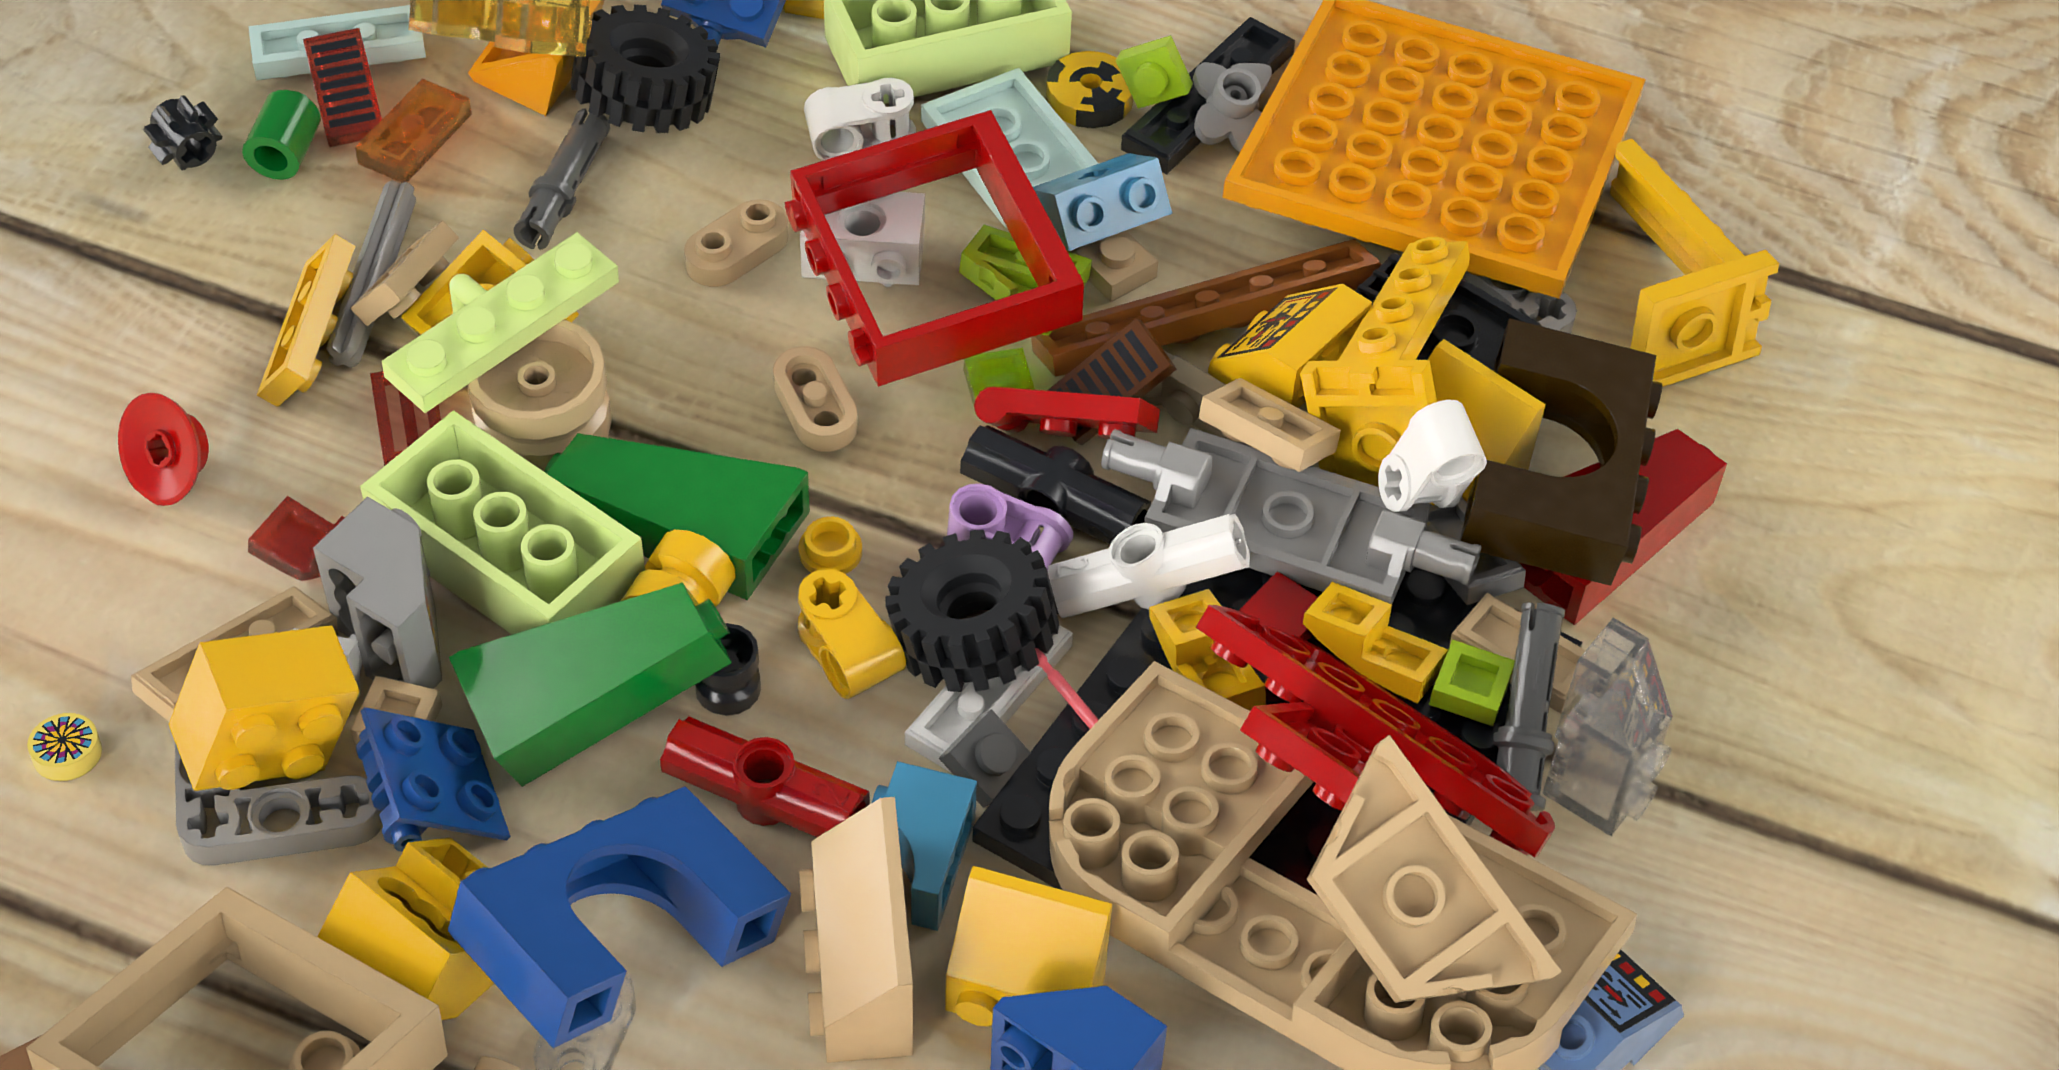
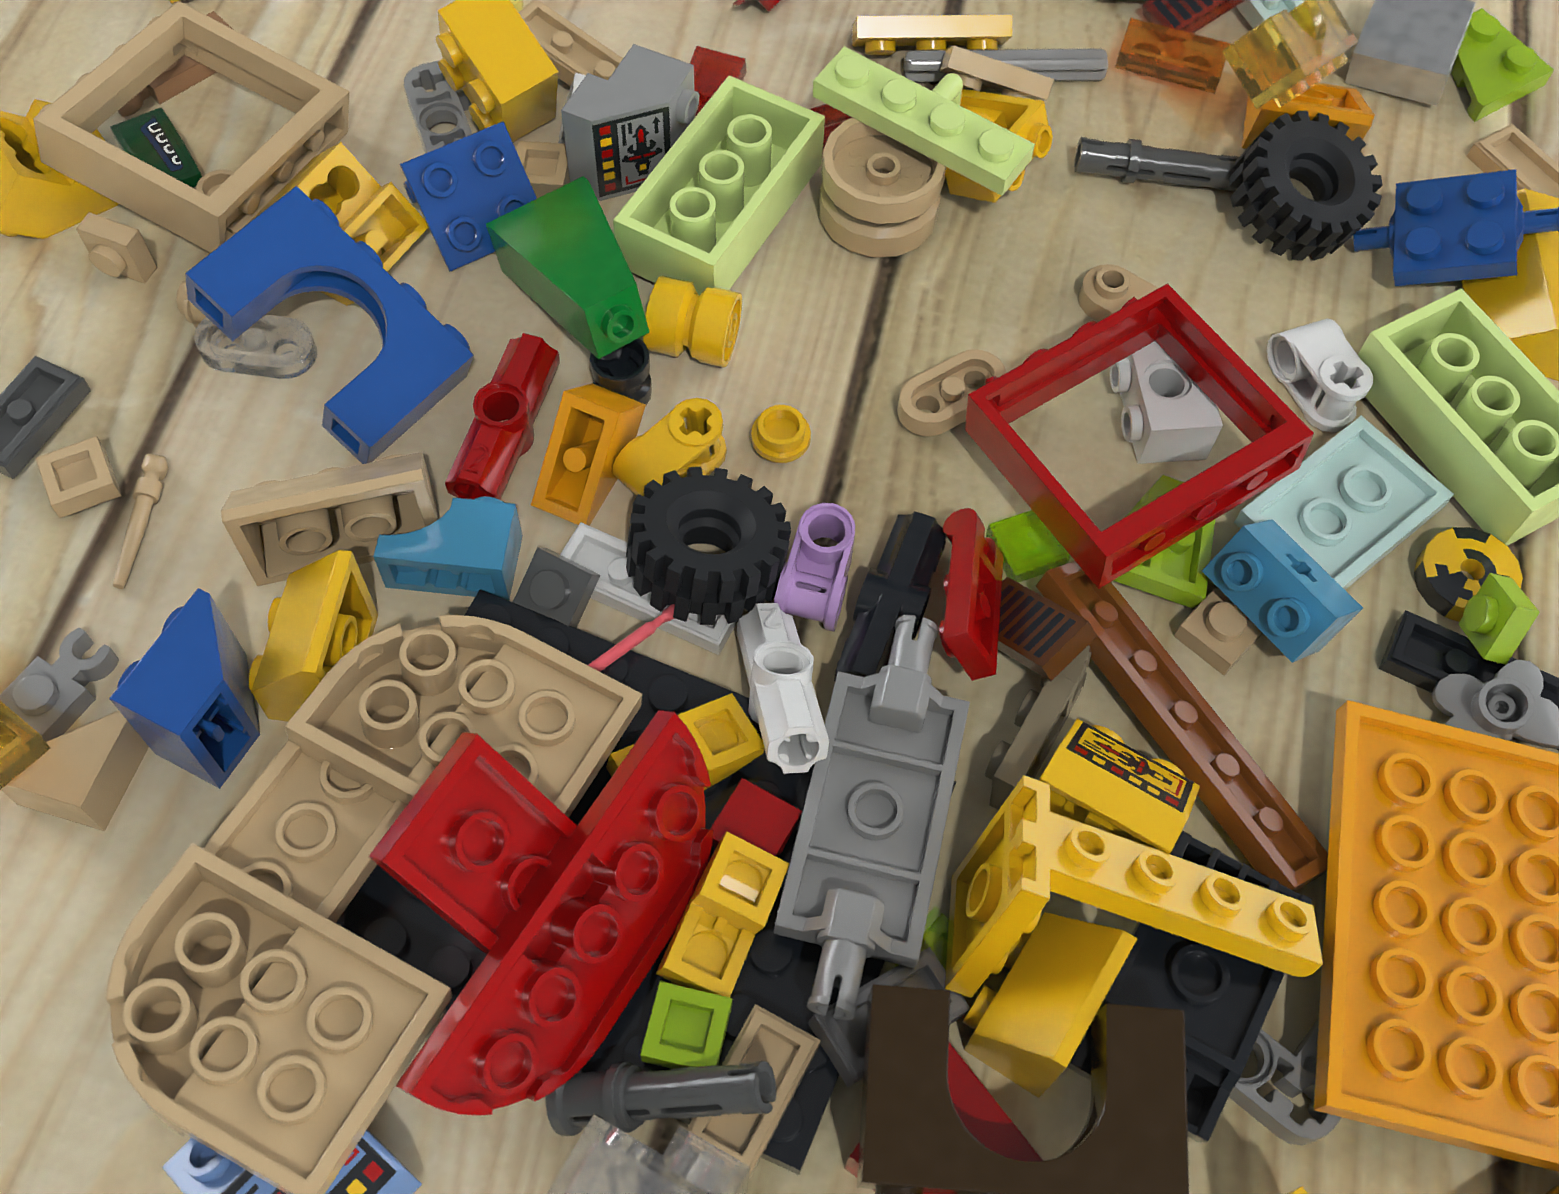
camera: 80 degrees right, 10 degrees up
(654, 489) = (789, 320): green slope -> none
(823, 708) = (581, 452): none -> light orange slope
(1269, 425) = (977, 771): tan plate -> none
(1419, 892) = (273, 937): tan wing -> none
(1432, 459) = (932, 931): white piece -> none

